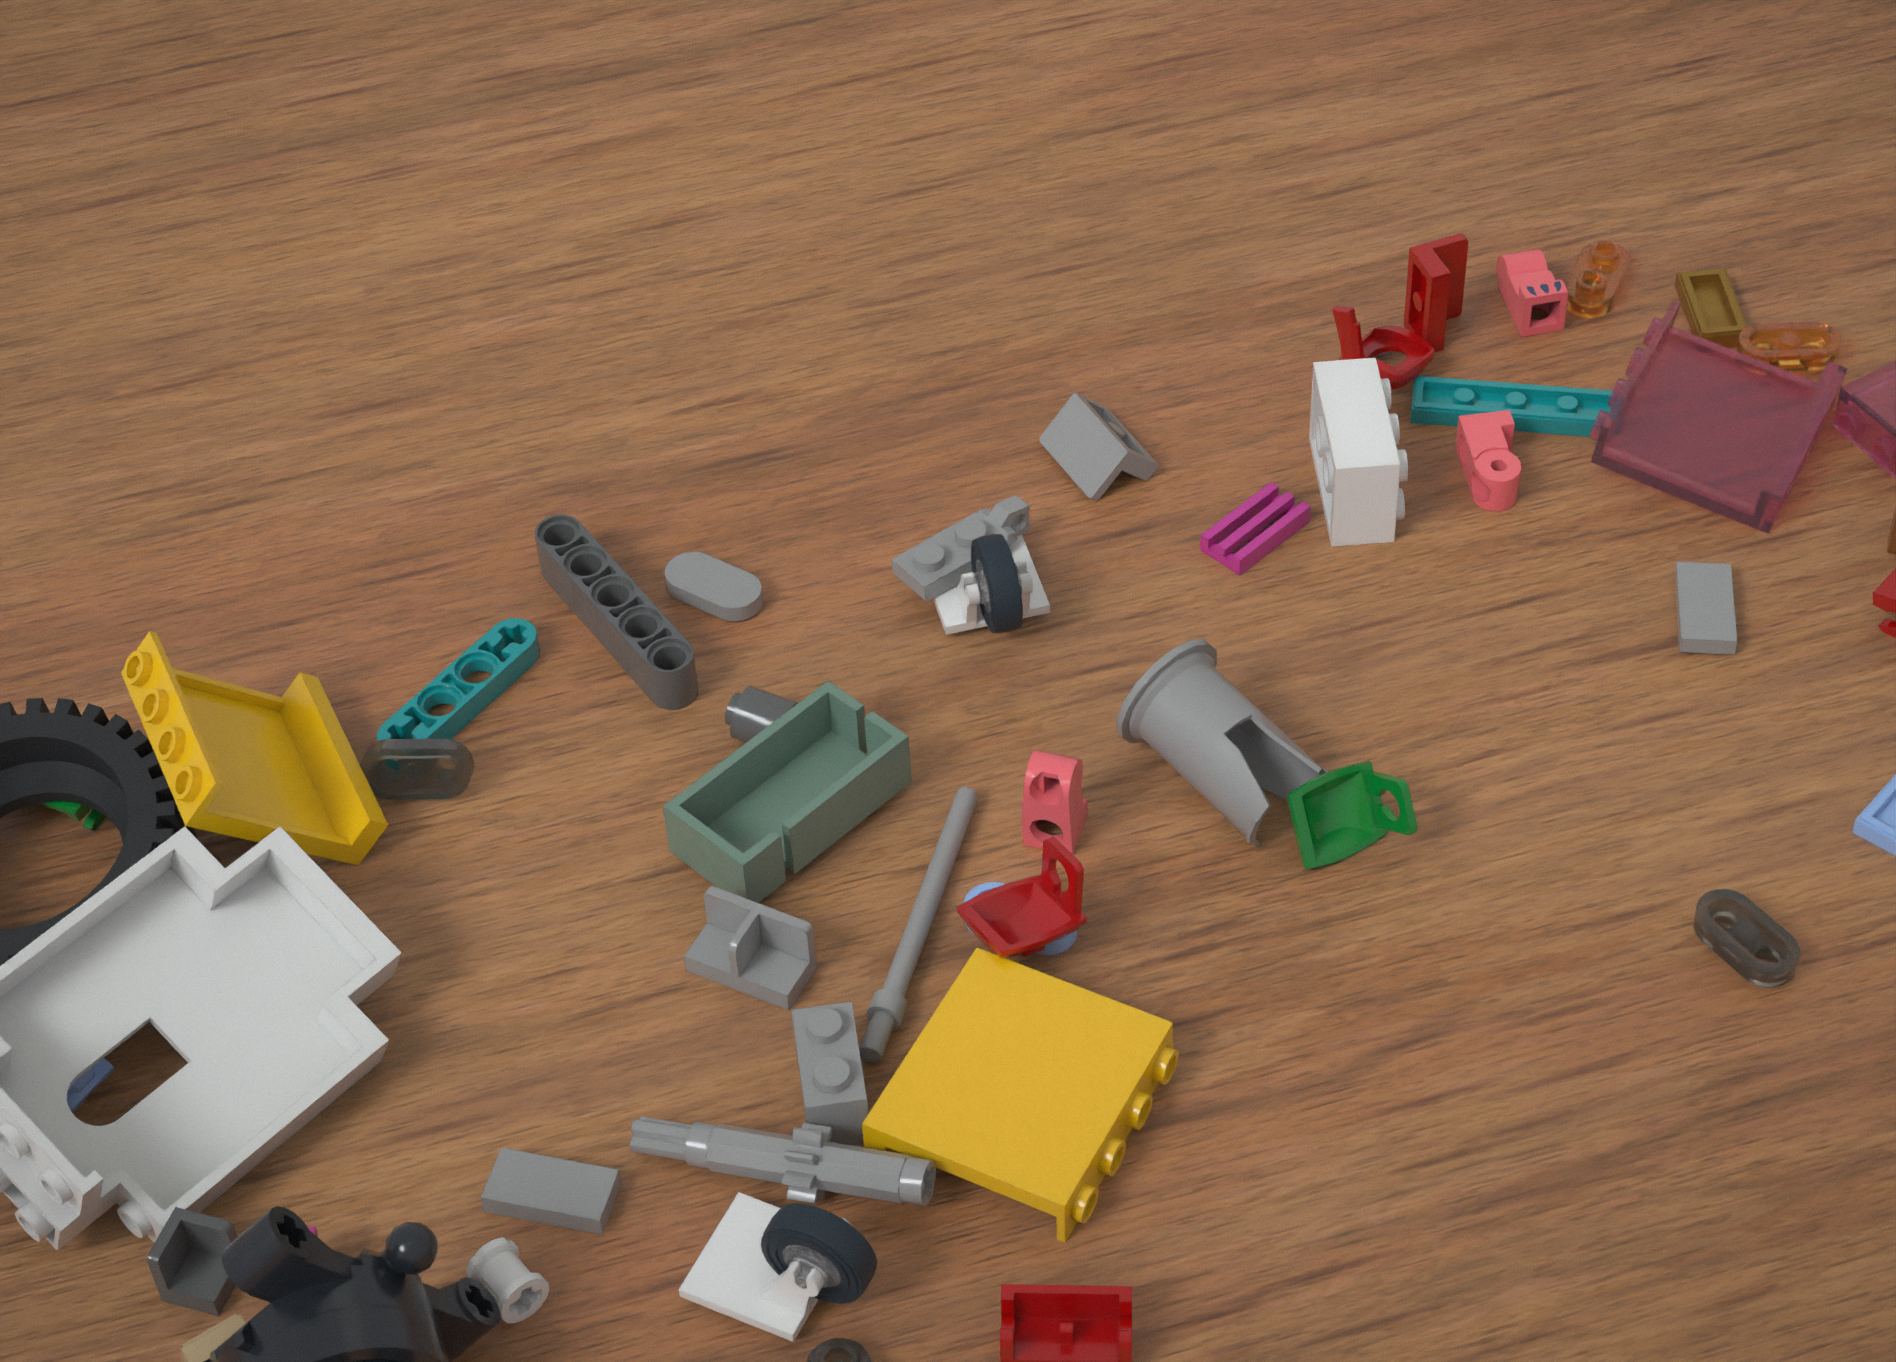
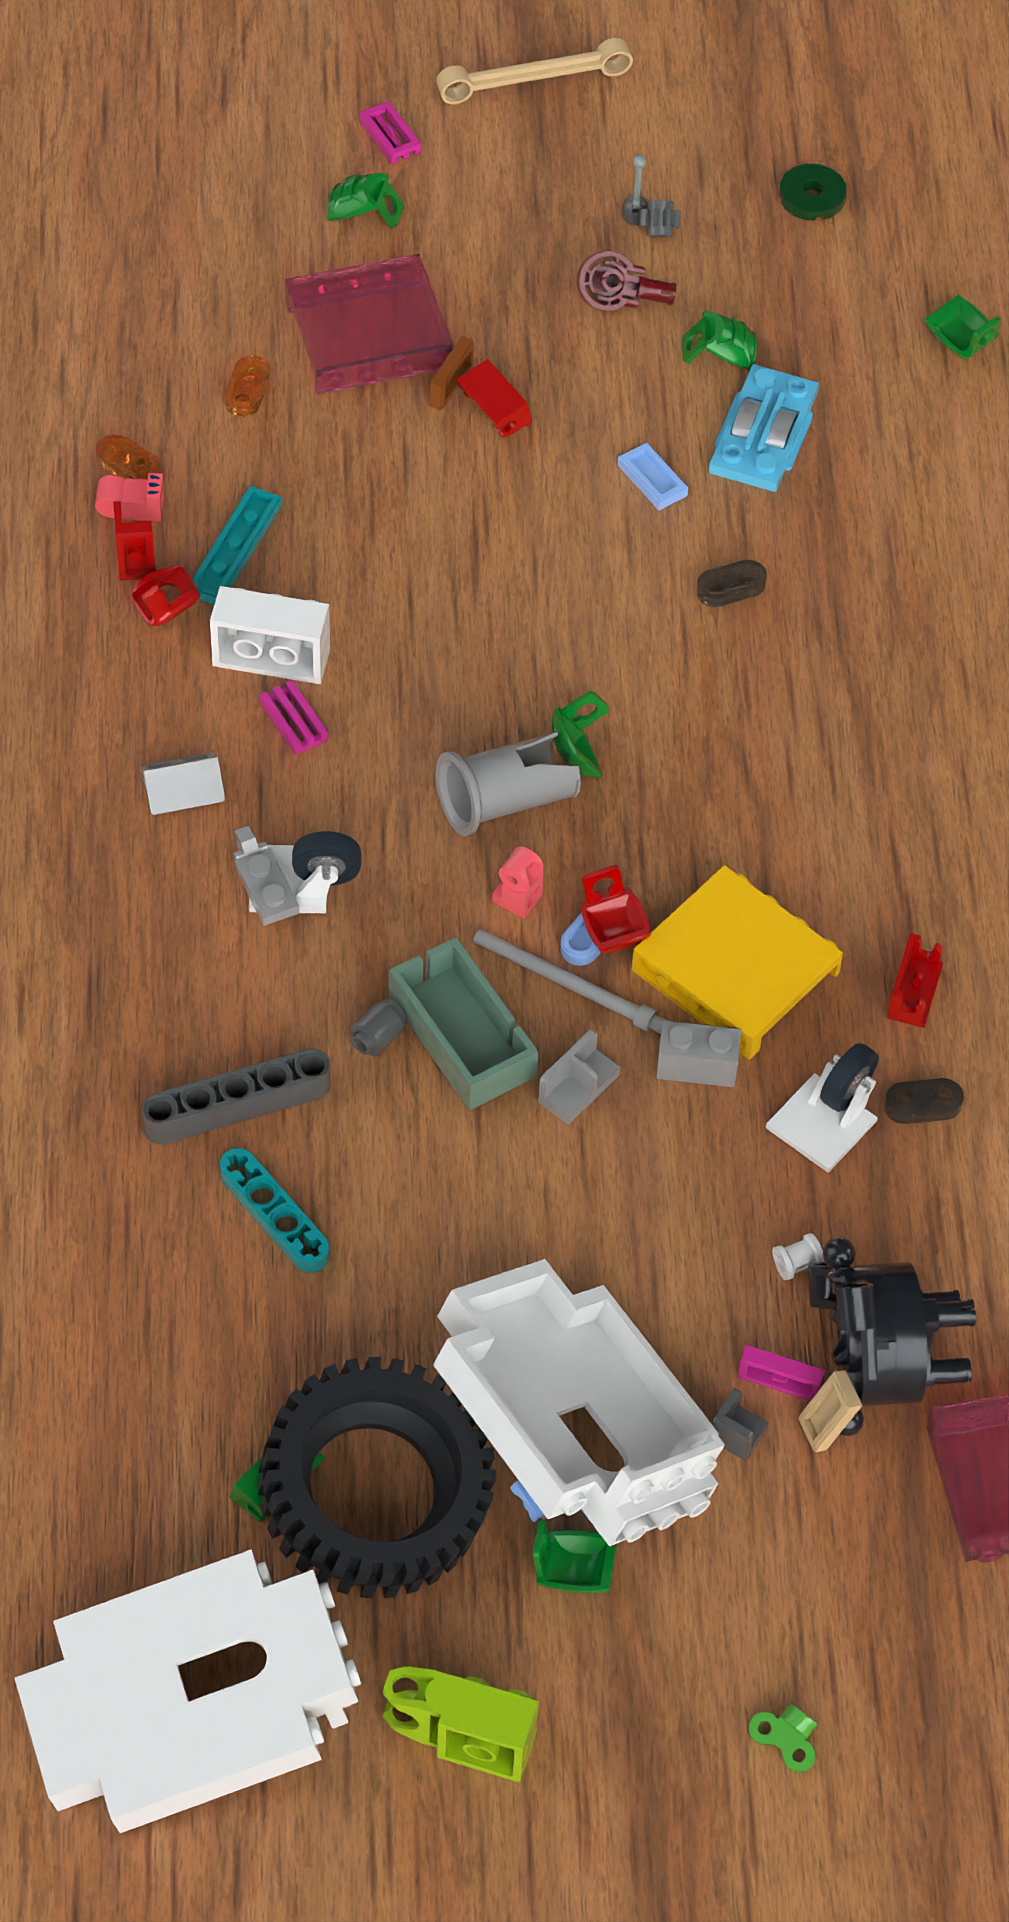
camera: 80 degrees left, 10 degrees up
(255, 758) = (333, 1318): yellow panel -> none
(419, 770) = (348, 1242): clear smoke plate -> none
(551, 1191) = (729, 1227): light grey tile -> none
(714, 586) = (225, 1037): light grey tile -> none
(801, 1160) = (758, 1082): light grey piece -> none
(1487, 459) = (289, 573): coral leg -> none
(1705, 608) = (459, 511): light grey tile -> none
(1711, 306) = (185, 412): pearl gold tile -> none
(1713, 424) = (309, 443): clear pink panel -> none

